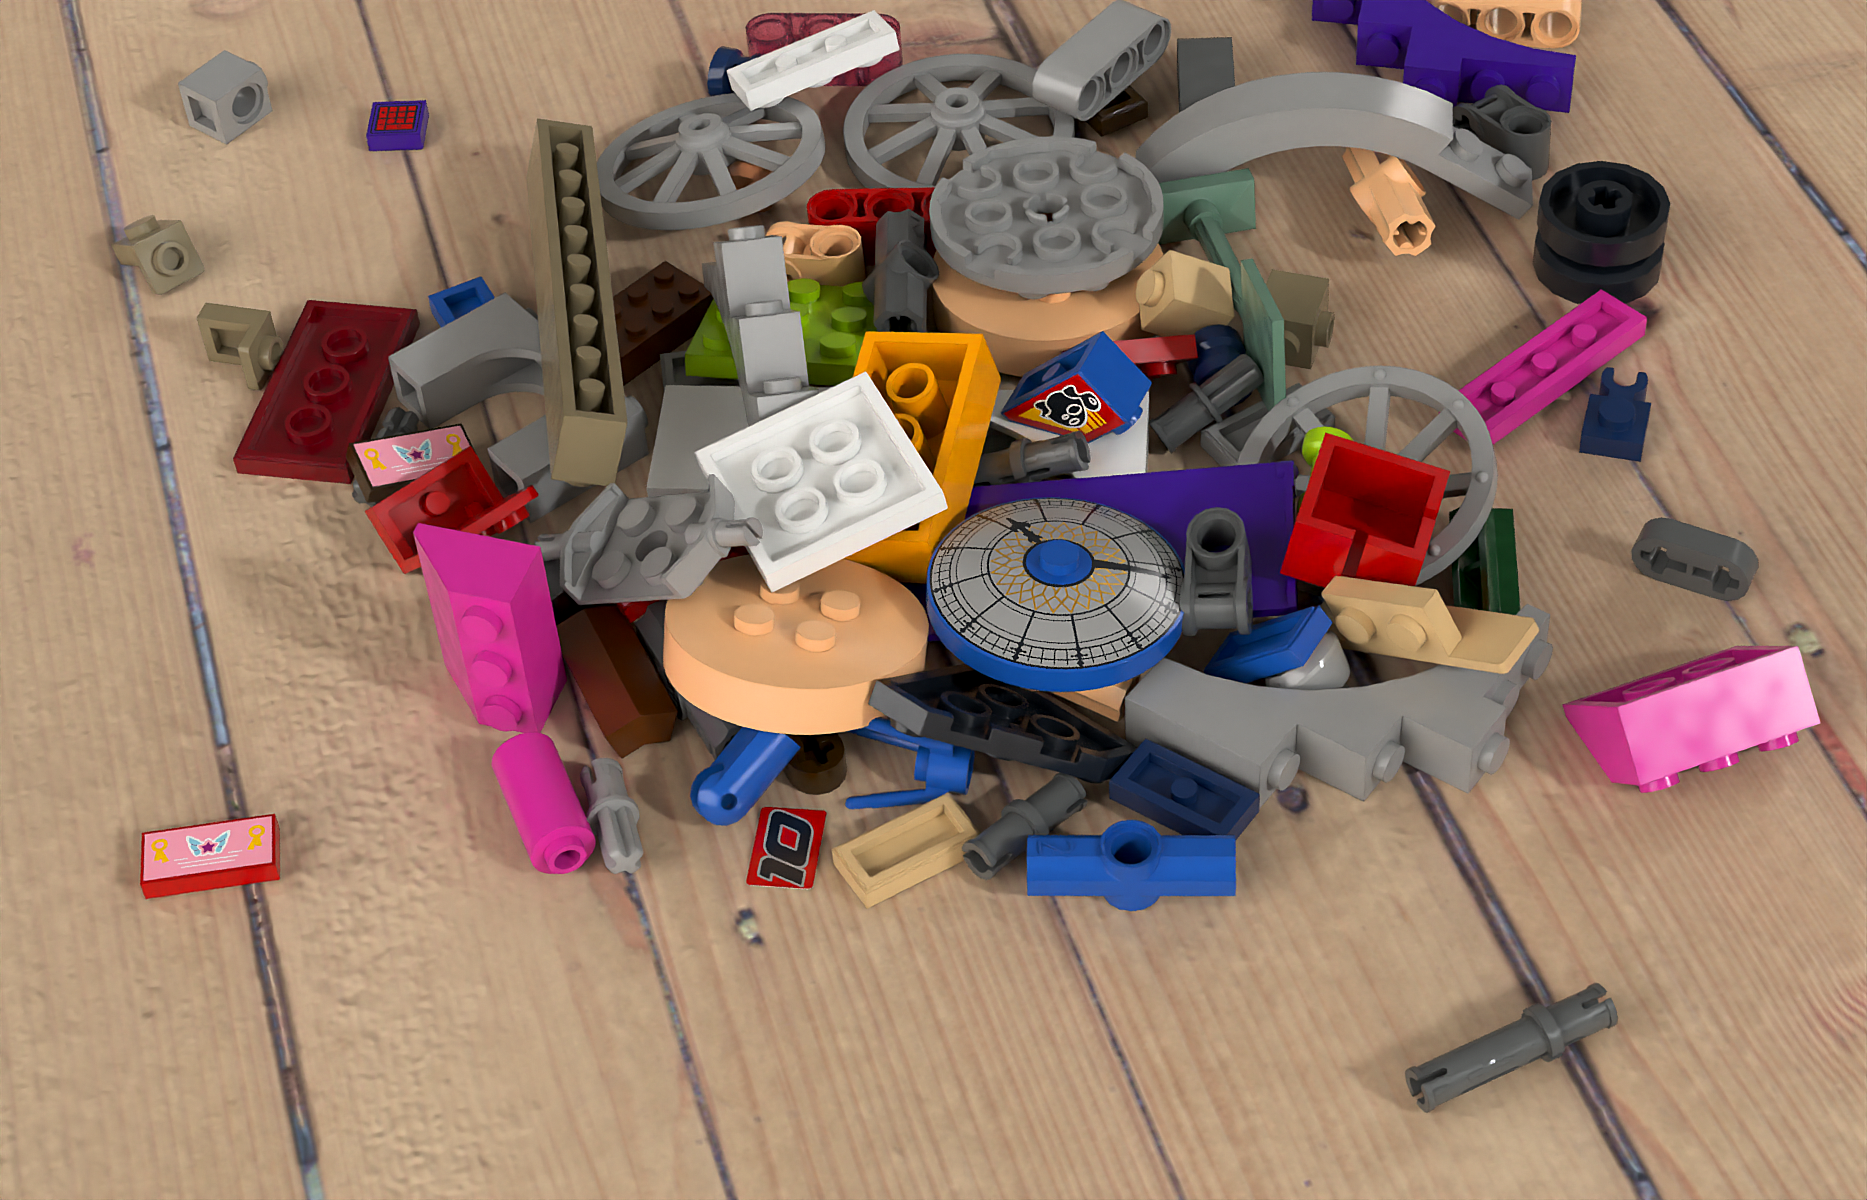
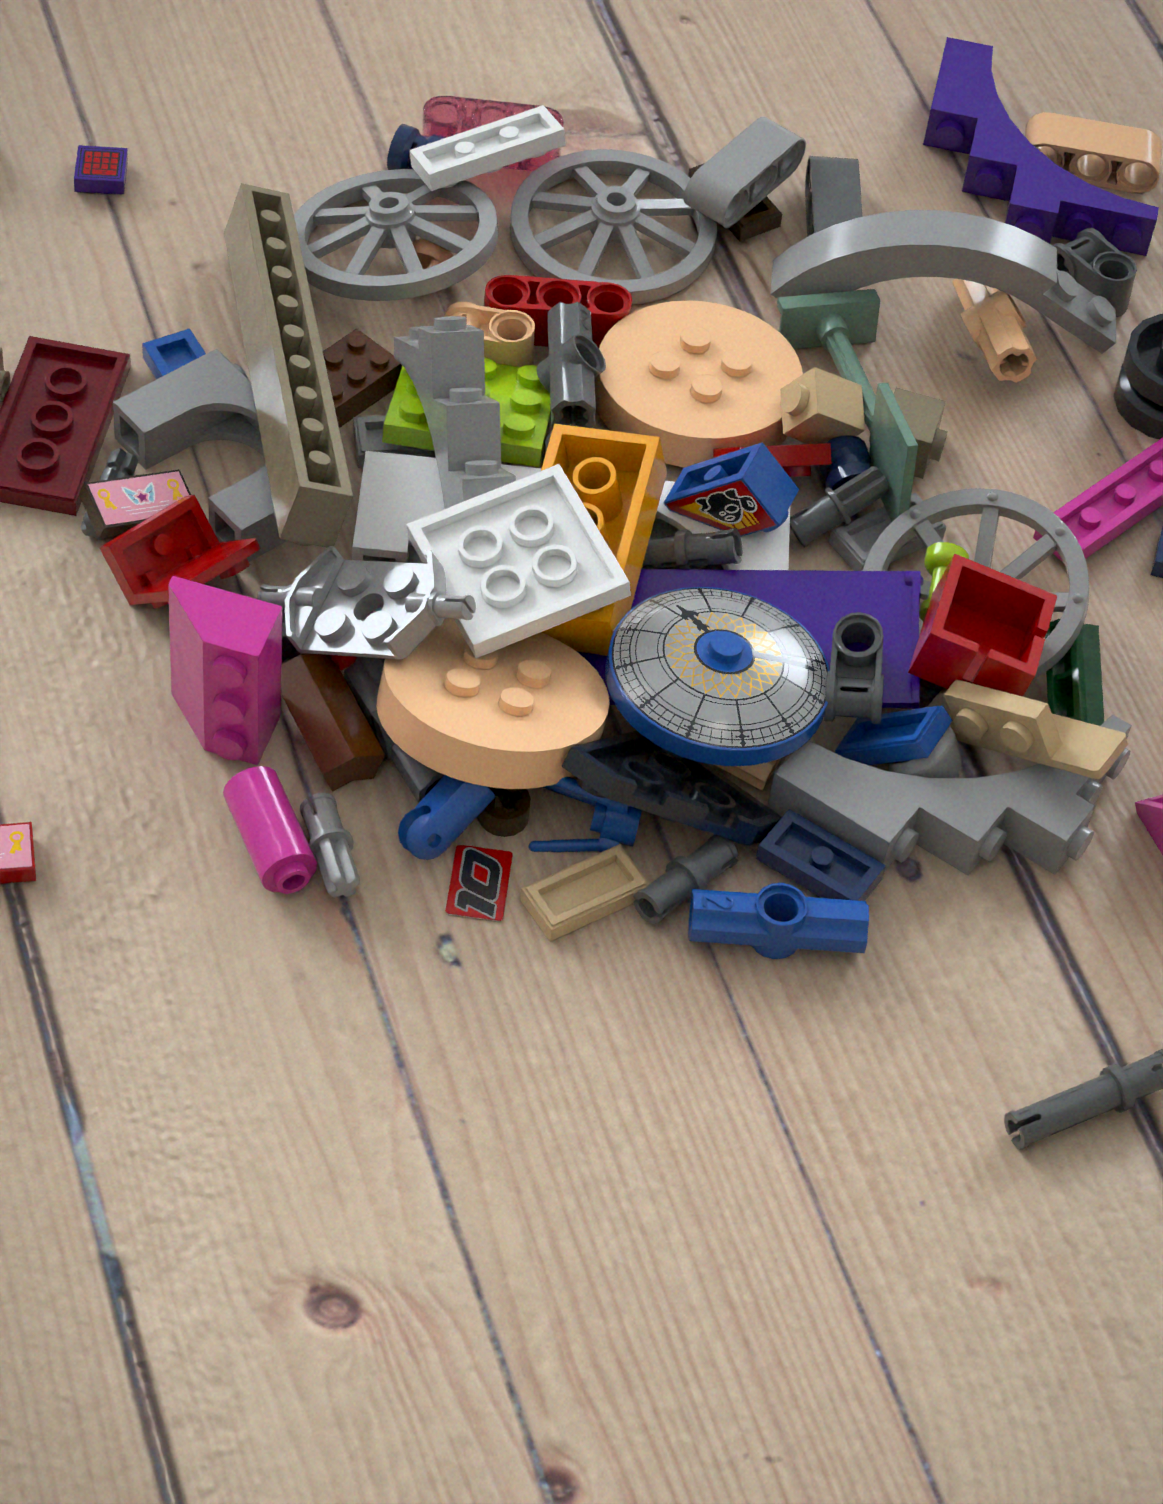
camera: 10 degrees left, 5 degrees up
(993, 227) = (751, 316): light grey plate -> none

